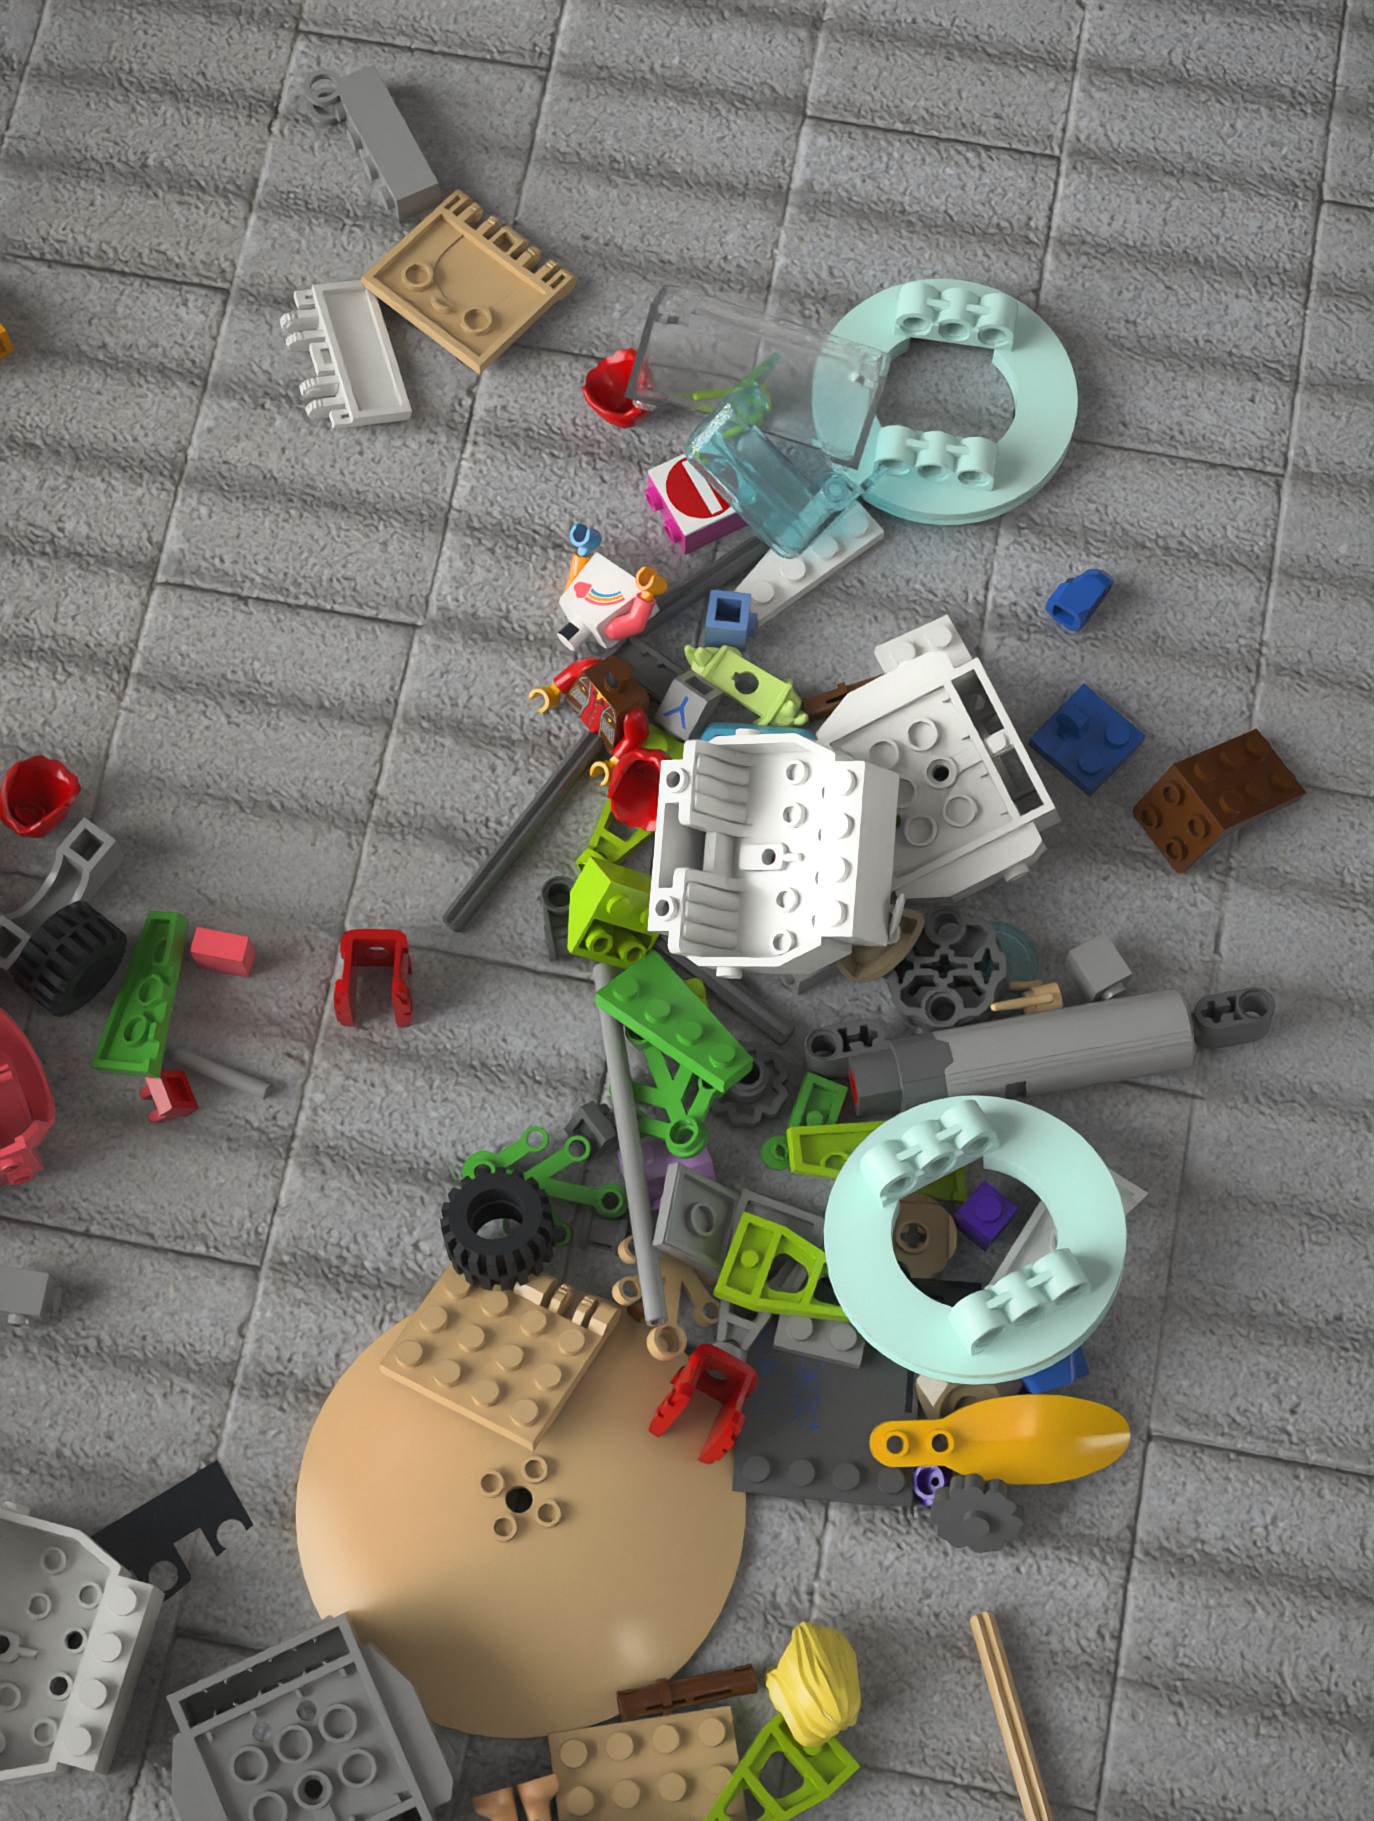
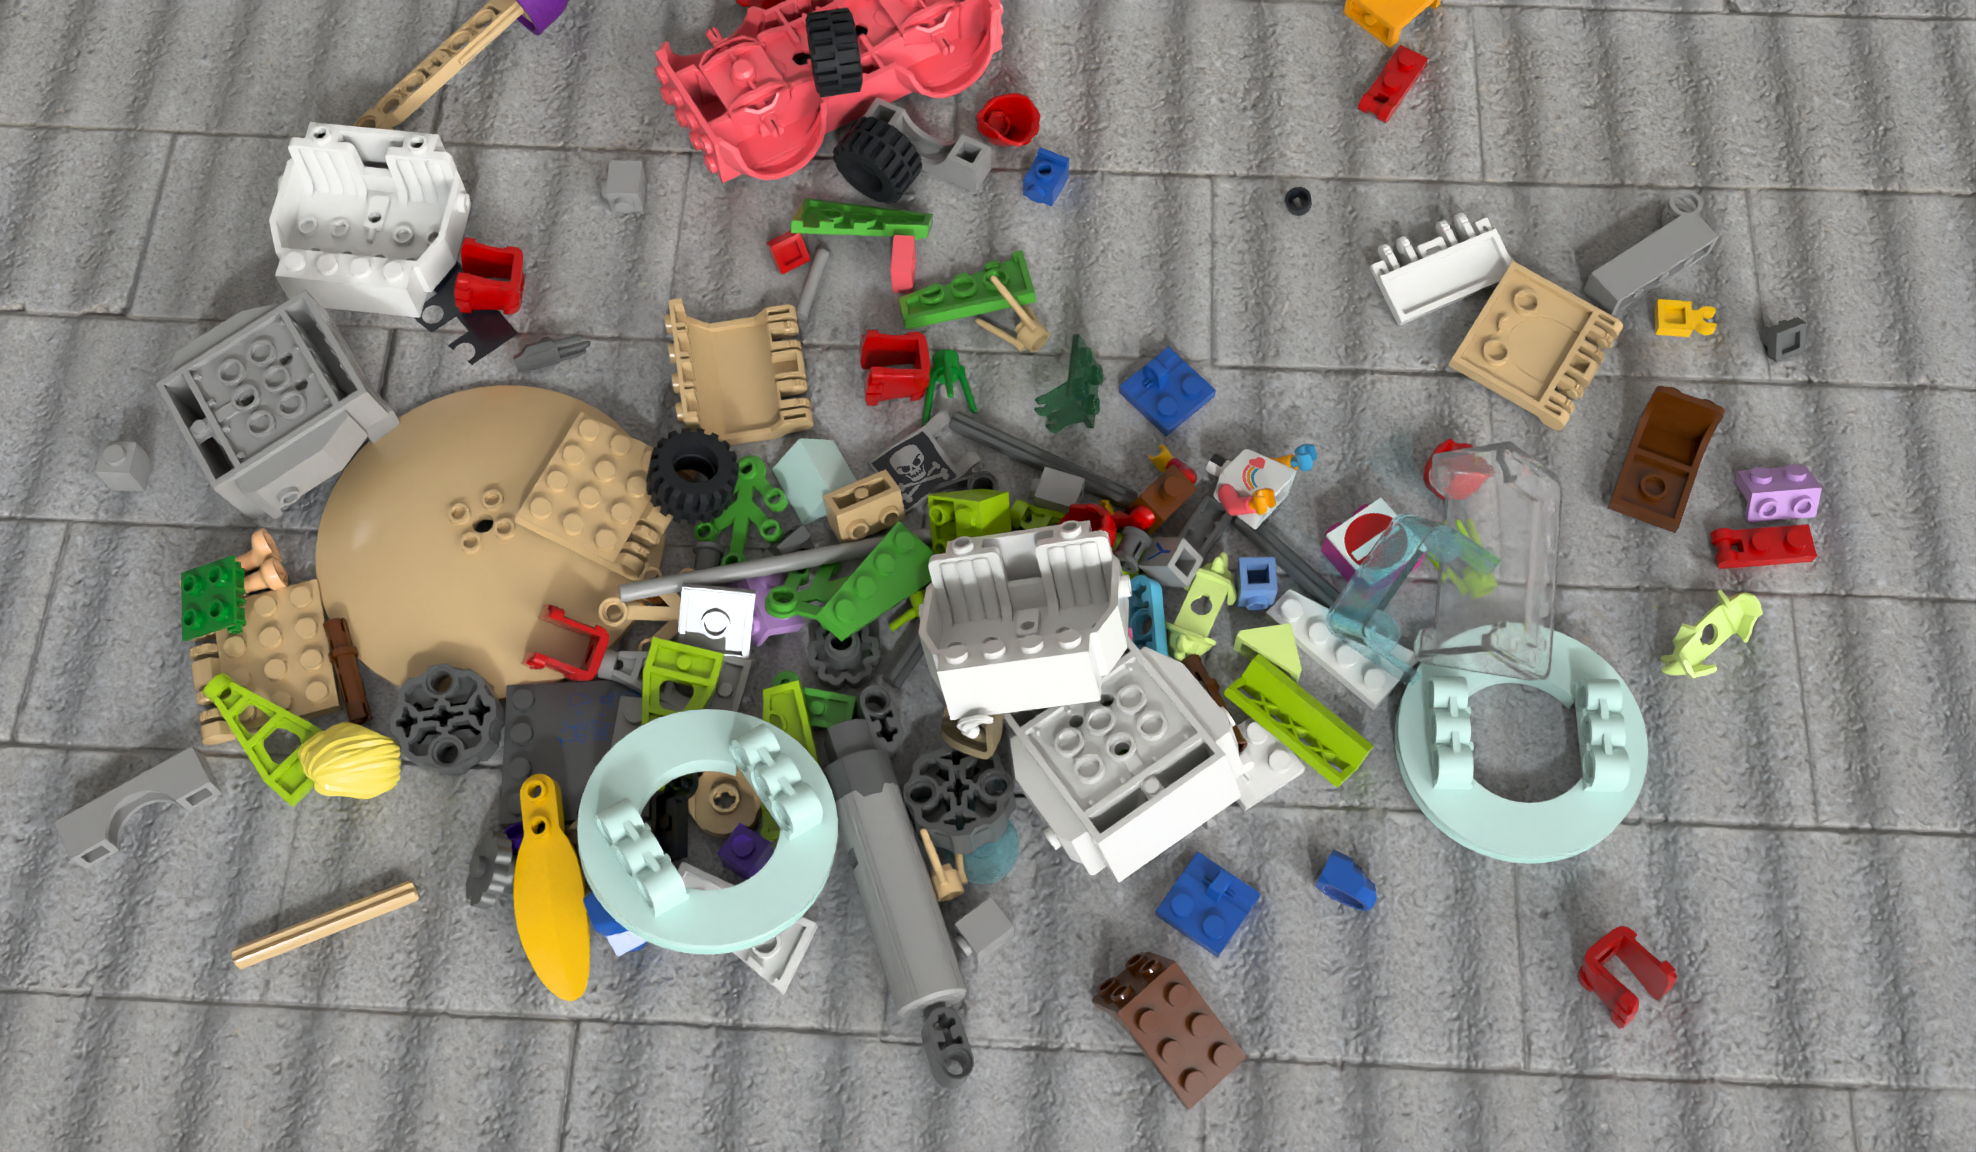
camera: 85 degrees right, 5 degrees down
(72, 355) = (1393, 83): none -> red plate
(132, 782) = (1046, 177): none -> blue brick
(143, 1446) = (481, 262): none -> red piece
(221, 481) = (1304, 197): none -> black hinge
(263, 1413) = (547, 353): none -> dark grey piece
(277, 865) = (969, 294): none -> bright green wing
(345, 1174) = (737, 375): none -> tan hinge
(347, 818) = (1030, 331): none -> tan plant
(387, 917) = (947, 371): none -> green plant
(454, 679) = (1167, 391): none -> blue hinge
(461, 775) = (1077, 396): none -> clear green plate
(462, 134) = (1679, 319): none -> yellow plate
(507, 1094) = (808, 473): none -> light aqua slope
(508, 37) = (1785, 339): none -> dark grey tile
(509, 974) = (921, 463): none -> flag
(565, 1034) = (864, 507): none -> tan brick
(576, 816) = (1057, 490): none -> light grey brick
(639, 191) = (1664, 457): none -> reddish brown bracket
(667, 738) = (1131, 548): none -> dark grey bush
(690, 92) = (1779, 493): none -> lavender bracket
(736, 1533) = (430, 738): none -> dark grey connector
(749, 123) = (1763, 546): none -> red plate
(809, 618) = (1273, 643): none -> yellowish green slope
(831, 170) = (1728, 616): none -> yellowish green piece
(890, 607) = (1301, 718): none -> lime fence
(1211, 334) = (1654, 975): none -> red piece

